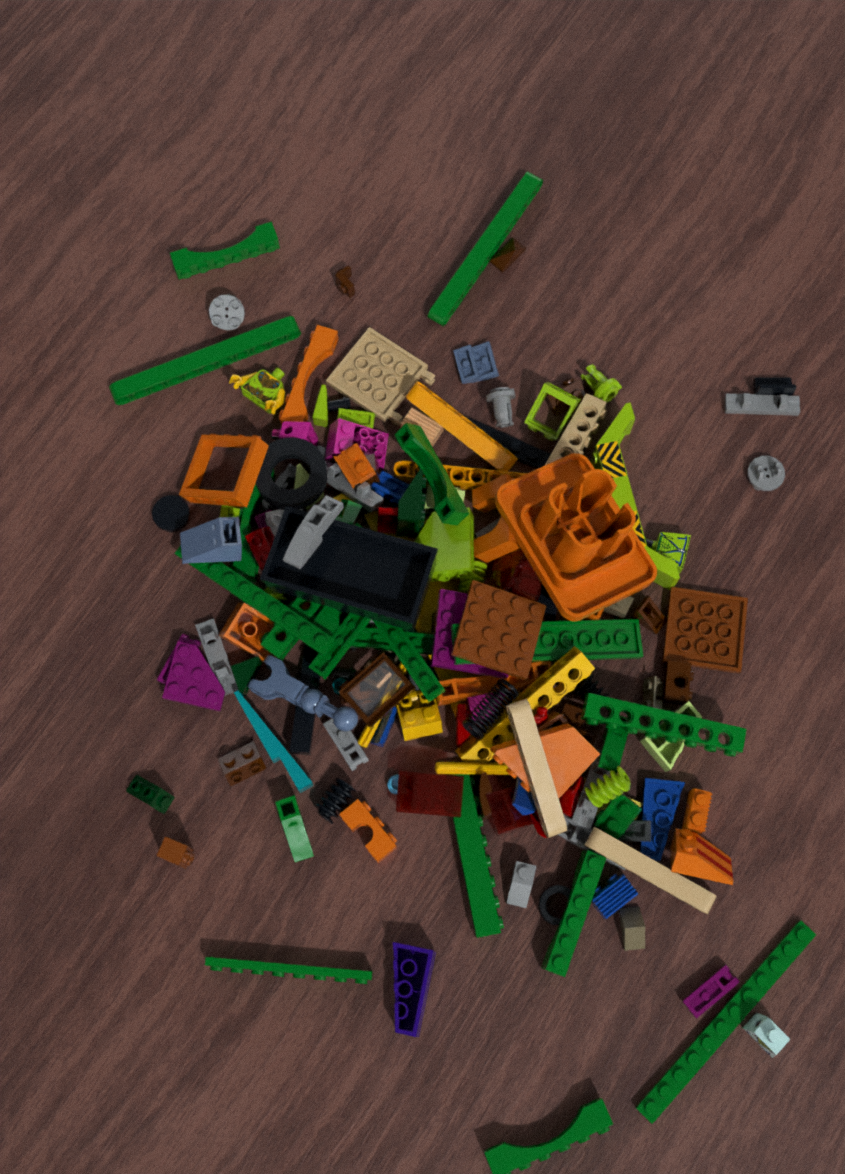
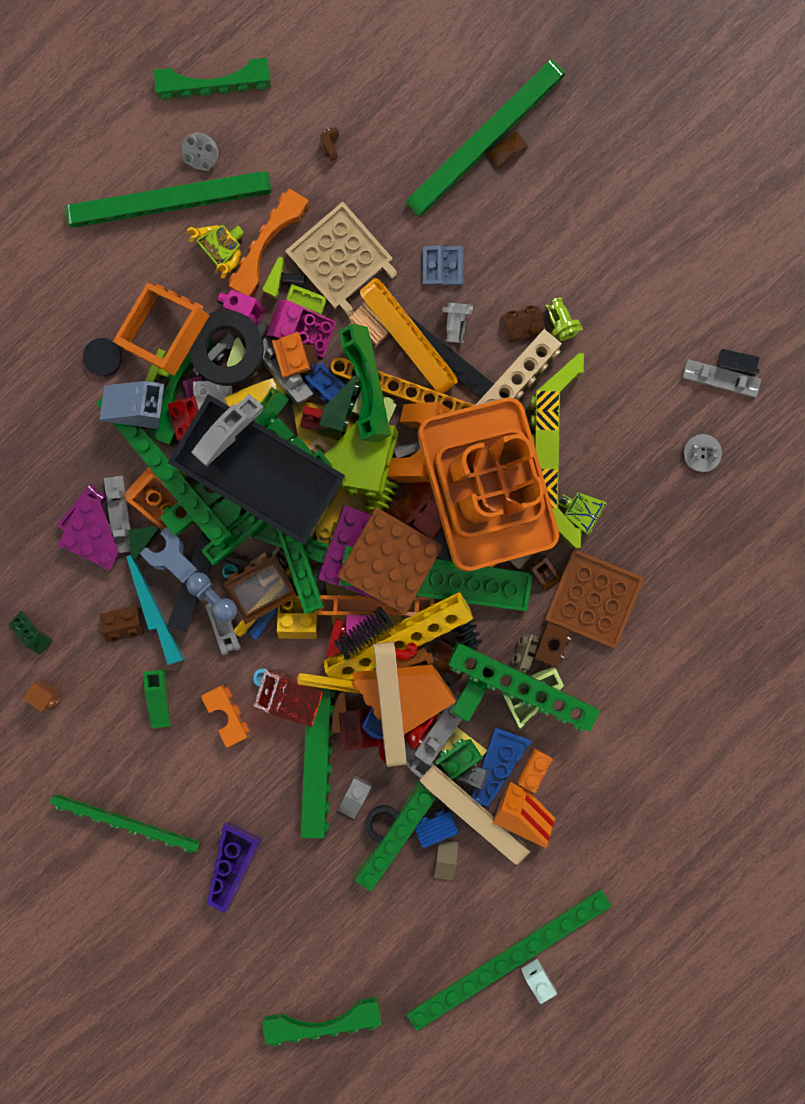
camera: 15 degrees right, 15 degrees up
(334, 800) = (200, 681): black piece -> none
(560, 394) = (517, 327): lime window -> none
(609, 788) = (454, 734): lime piece -> none
(710, 992) = (500, 932): magenta plate -> none

